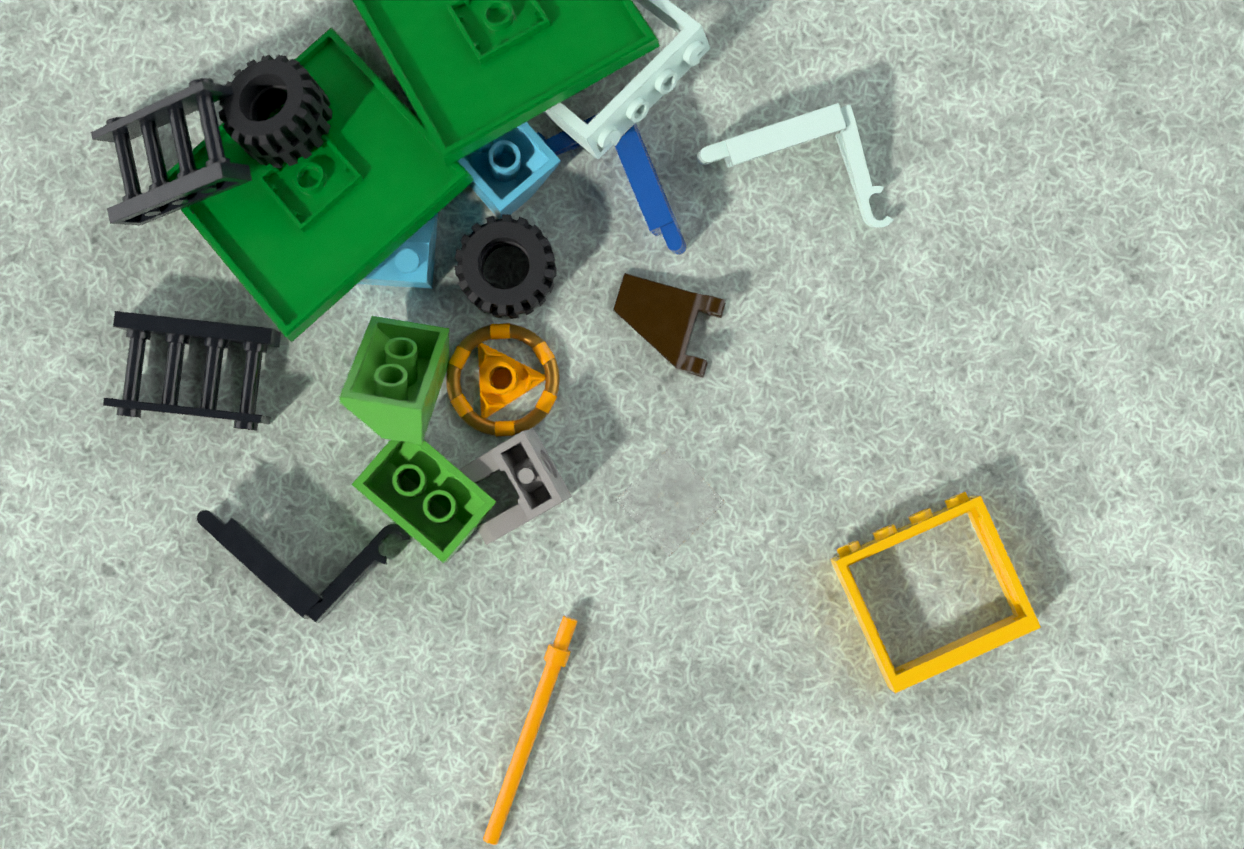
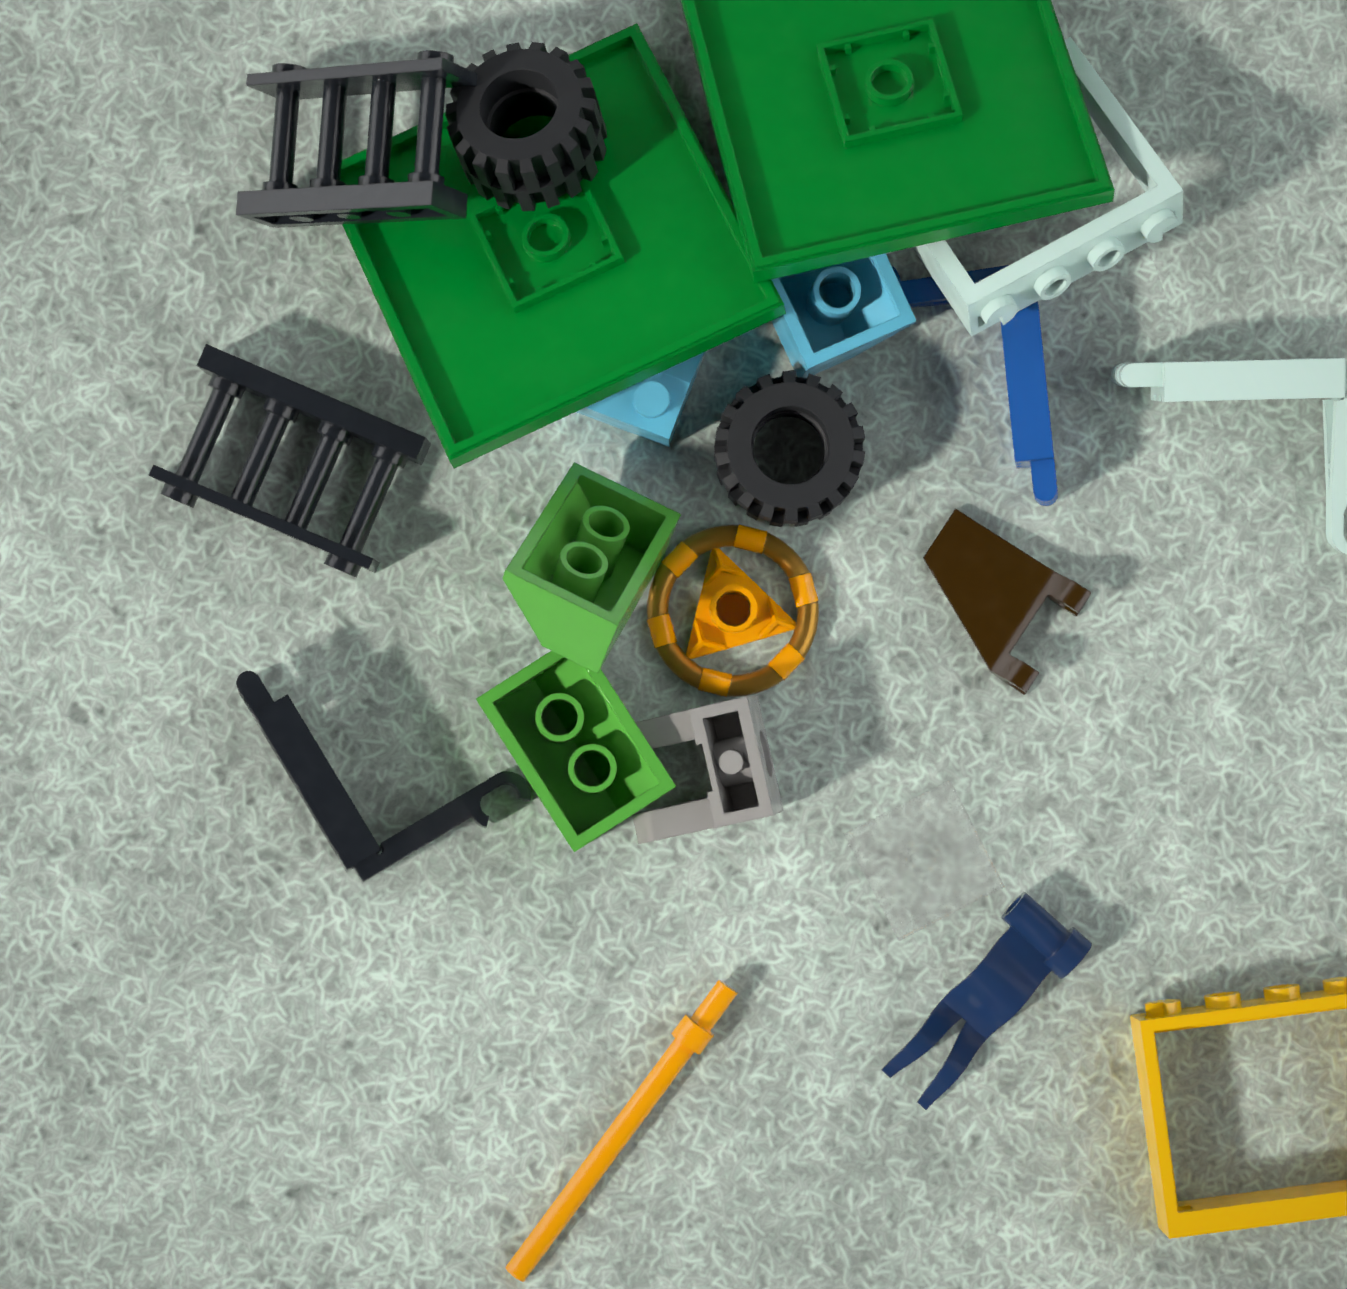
camera: 15 degrees right, 0 degrees up
(739, 569) = (994, 990): none -> dark blue flag

